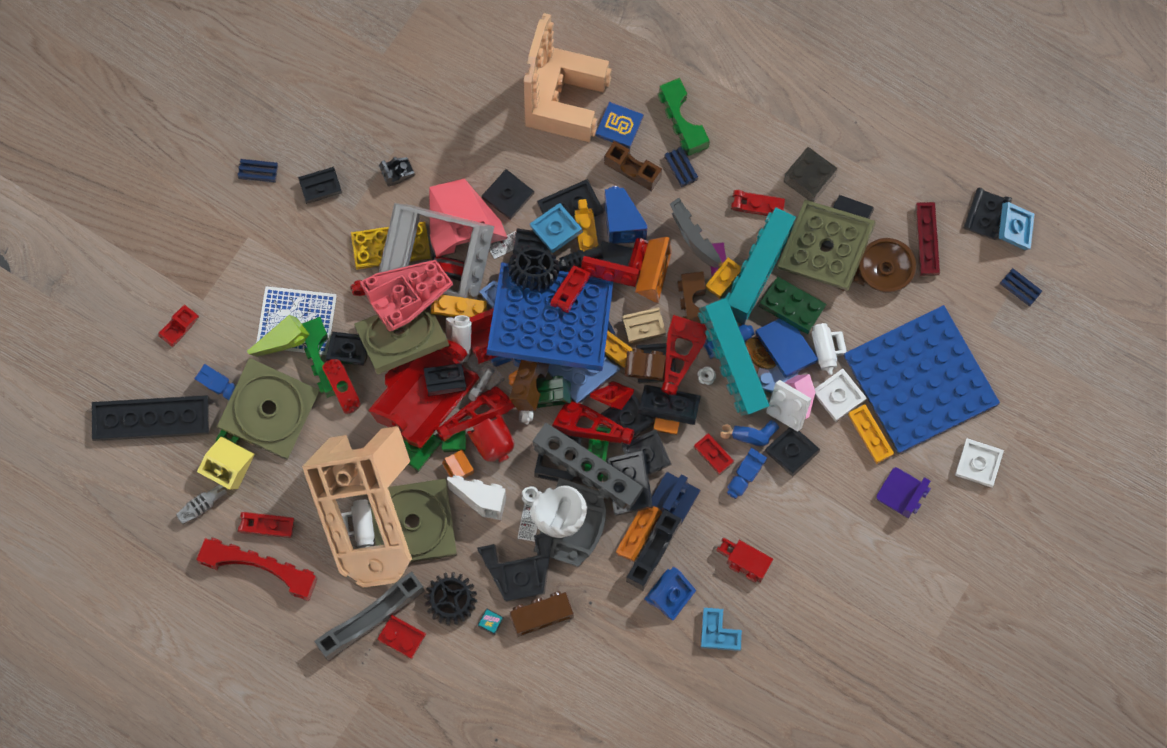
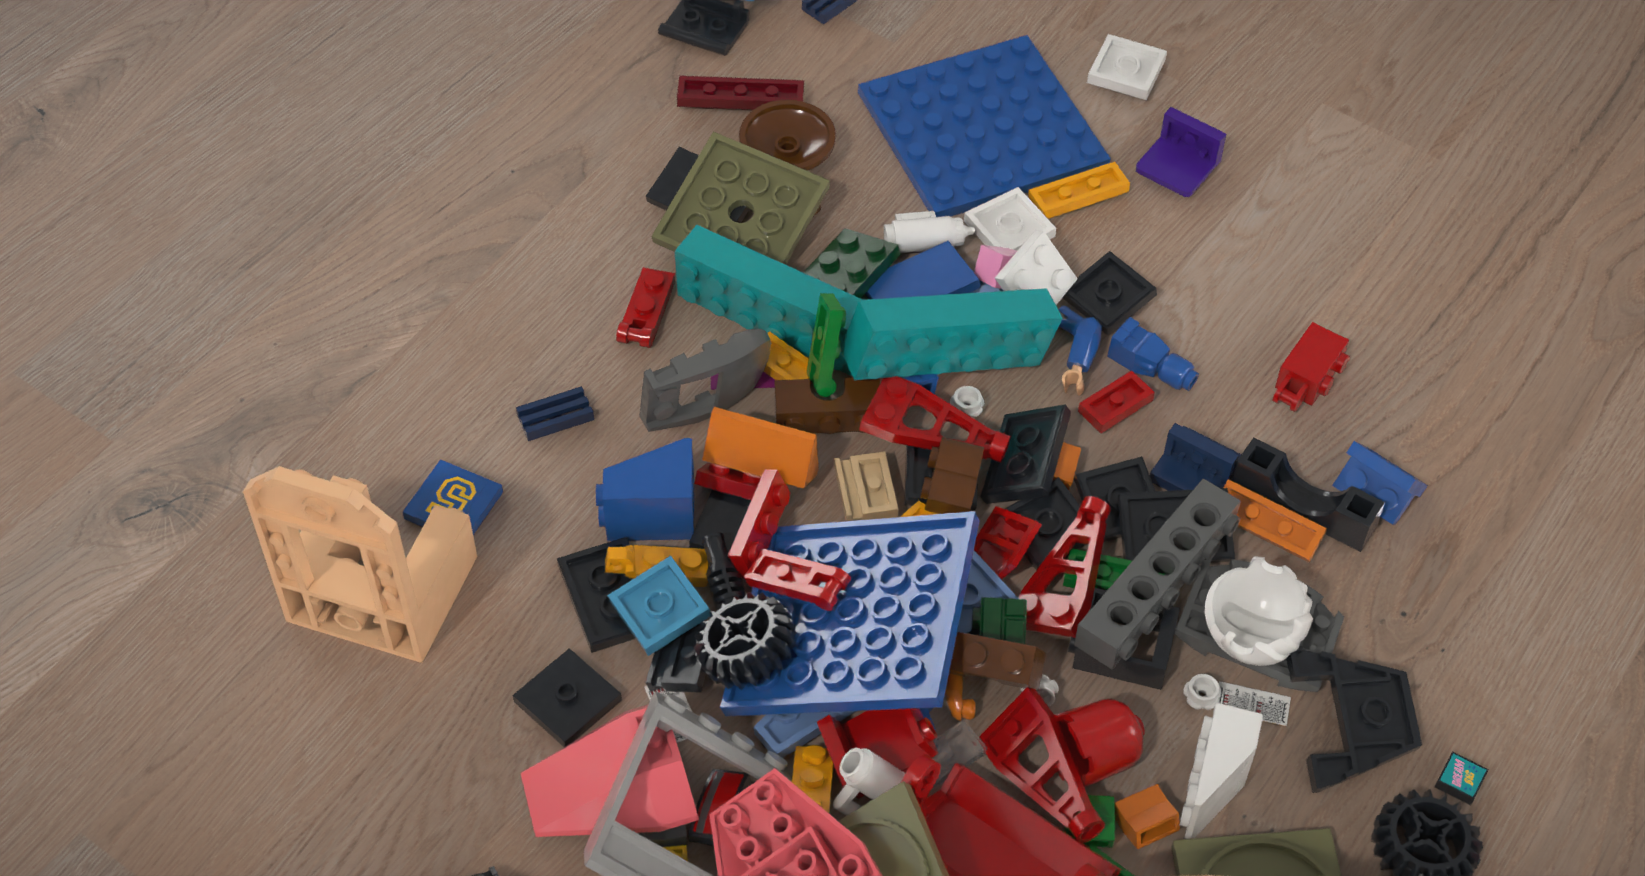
camera: 85 degrees left, 20 degrees down
(444, 379) = (969, 819): black plate -> none
(478, 390) = (991, 769): light grey bar -> none
(541, 613) = (1442, 685): reddish brown brick -> none
(622, 161) = (530, 496): reddish brown arch -> none
(692, 136) = (420, 410): green arch -> none
(714, 636) = (1447, 425): dark azure plate -> none
(716, 291) = (825, 343): none -> green plate
(810, 174) = (605, 226): clear smoke brick -> none

